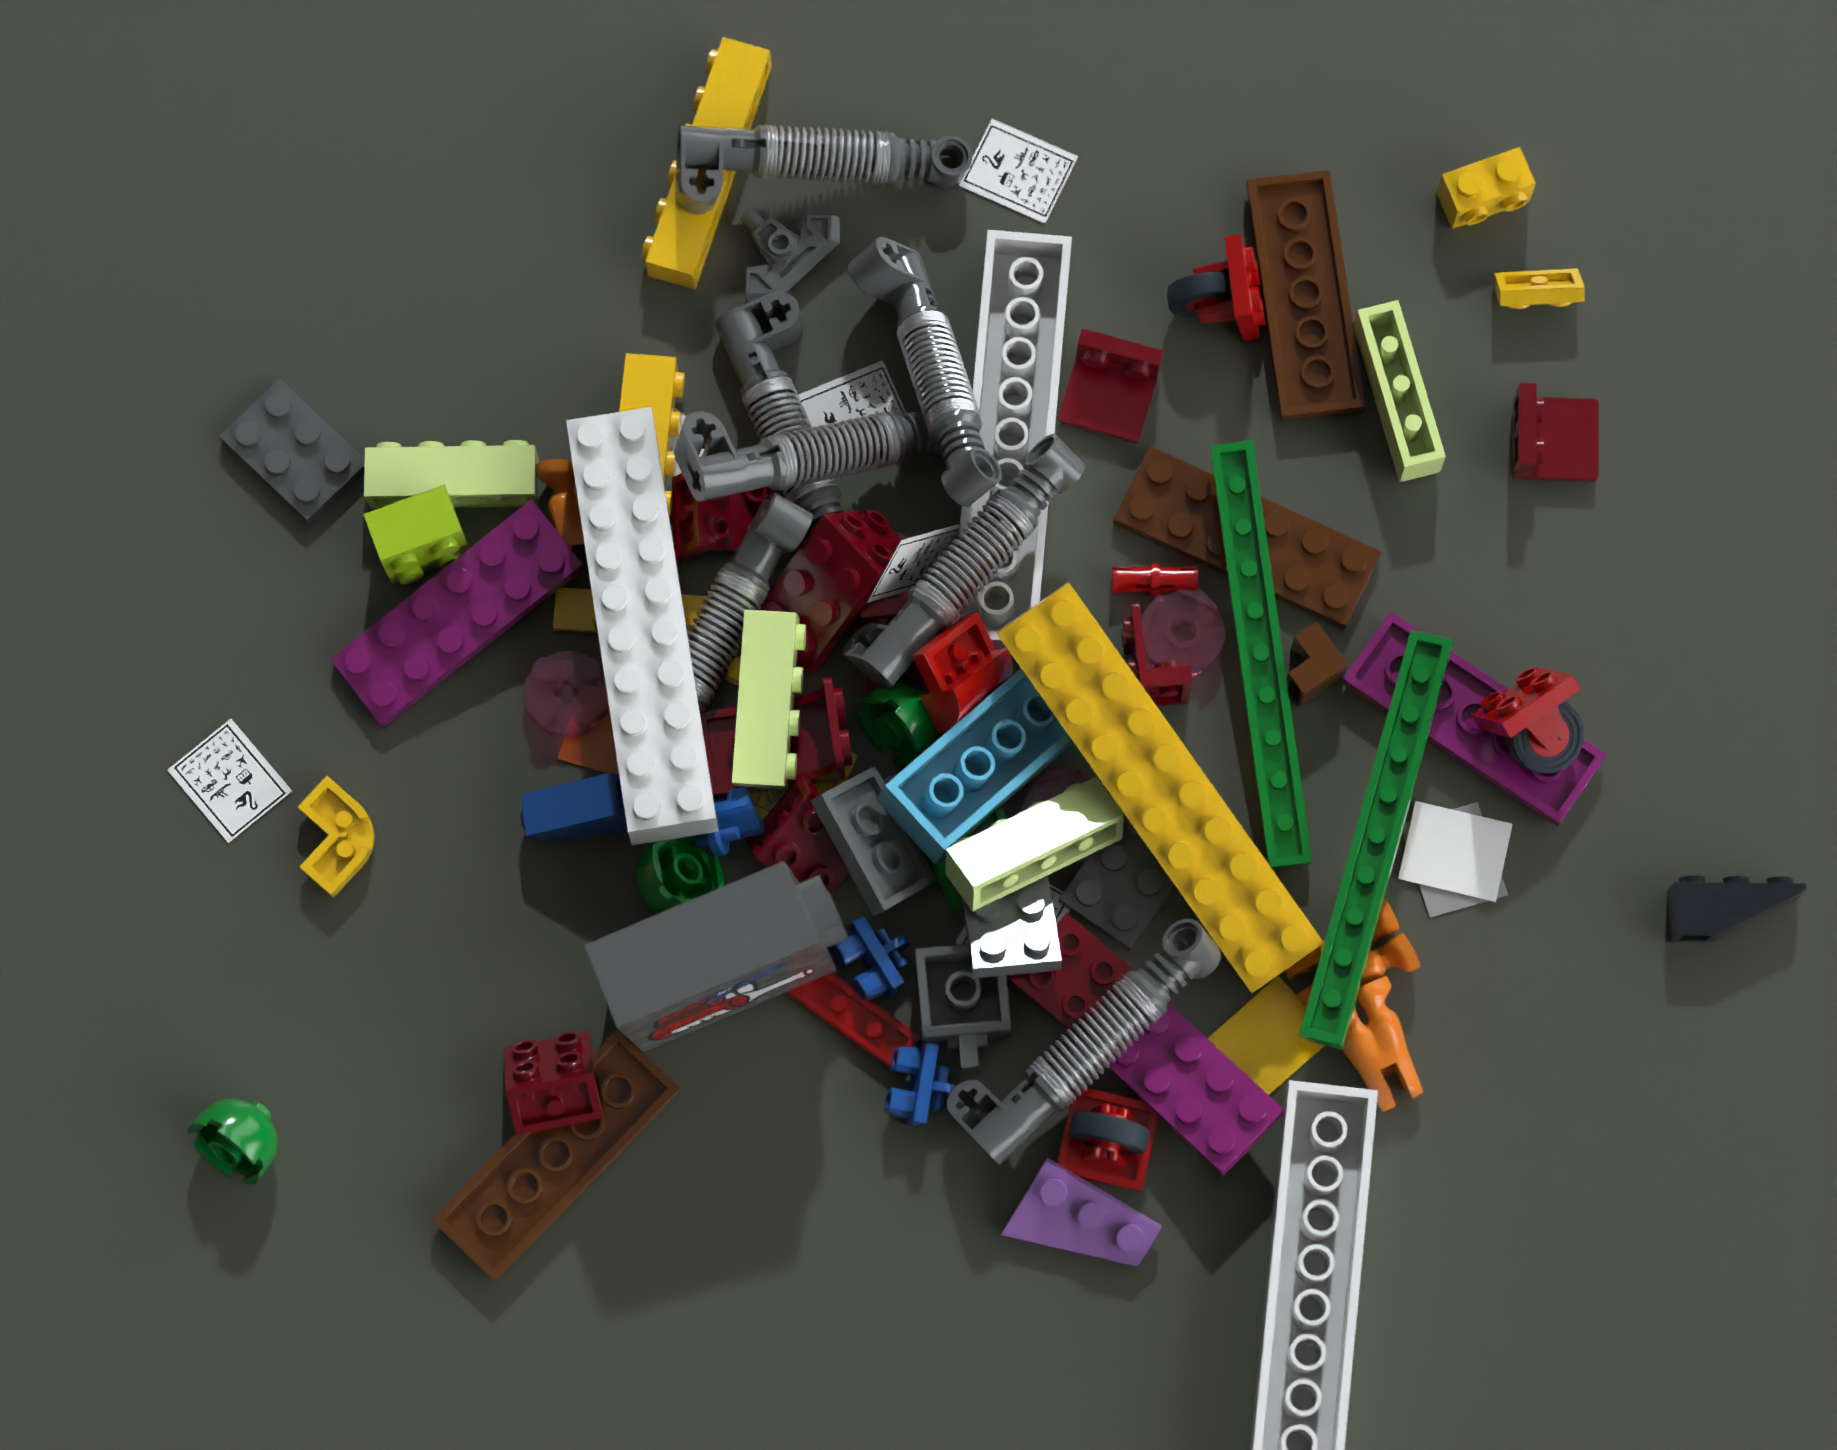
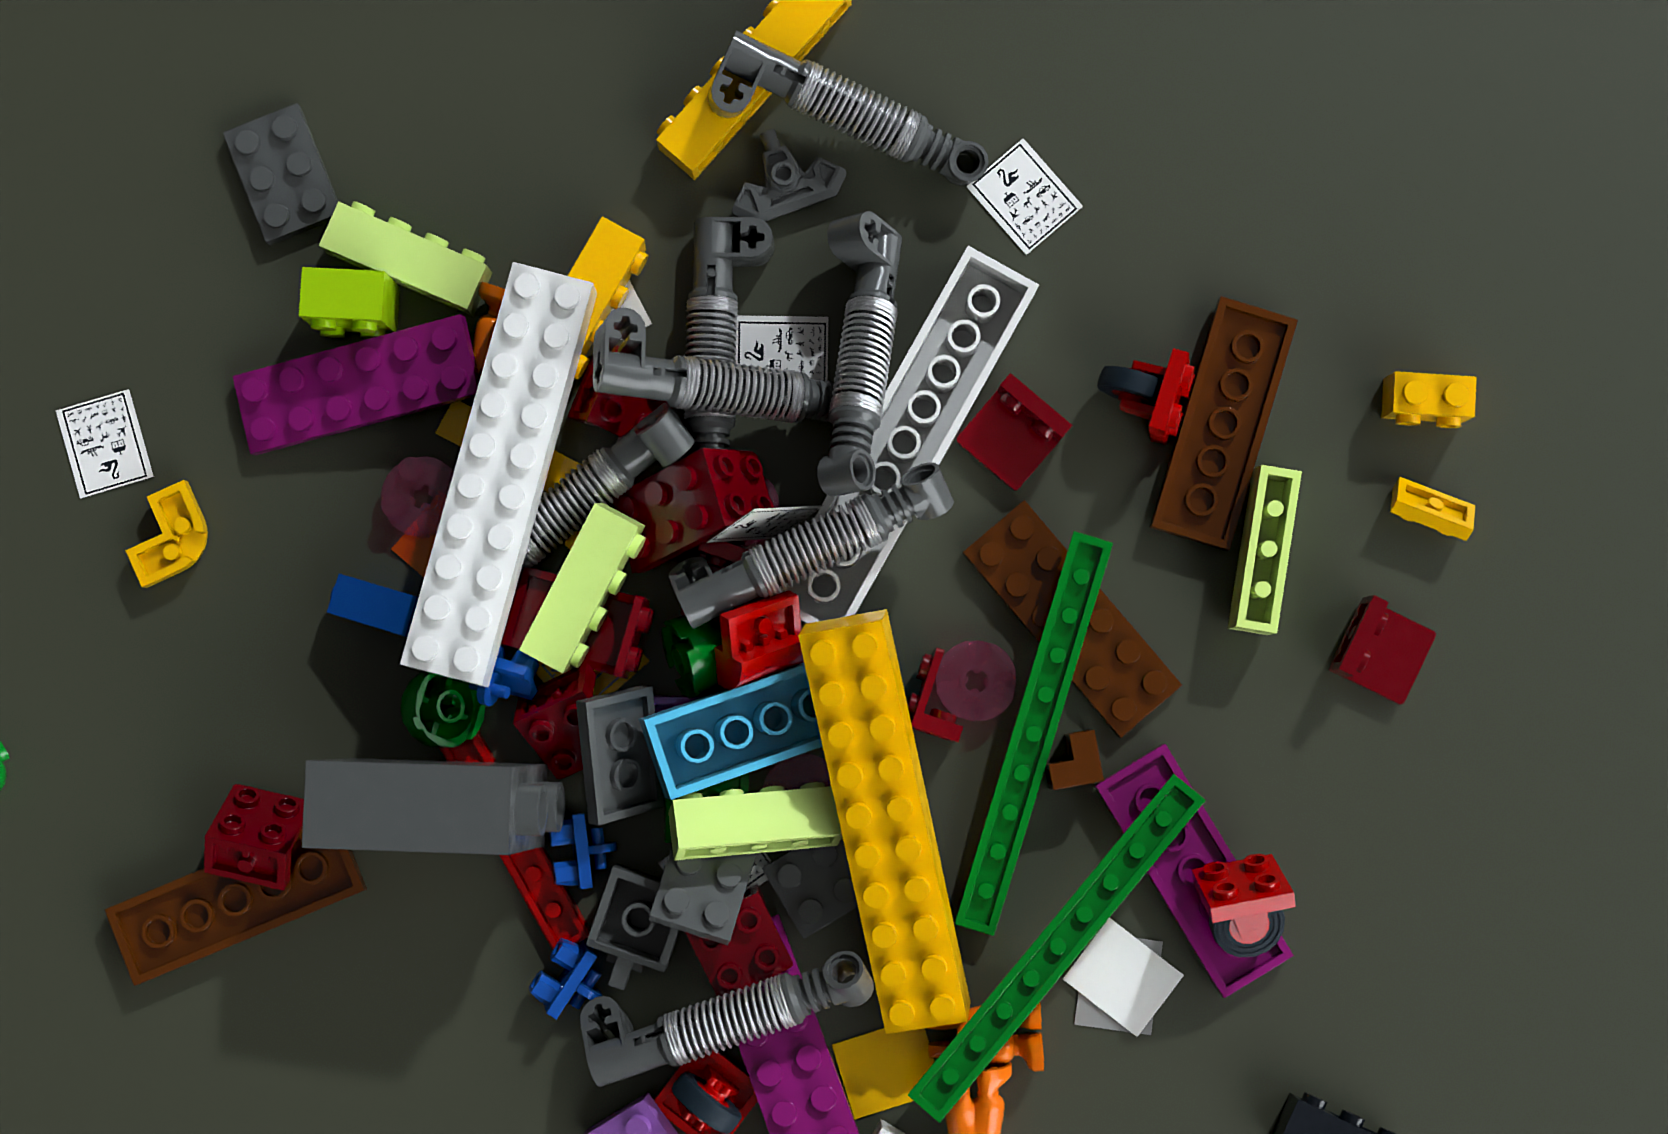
camera: 20 degrees right, 10 degrees up
(1154, 579) = (974, 621): red pin -> none

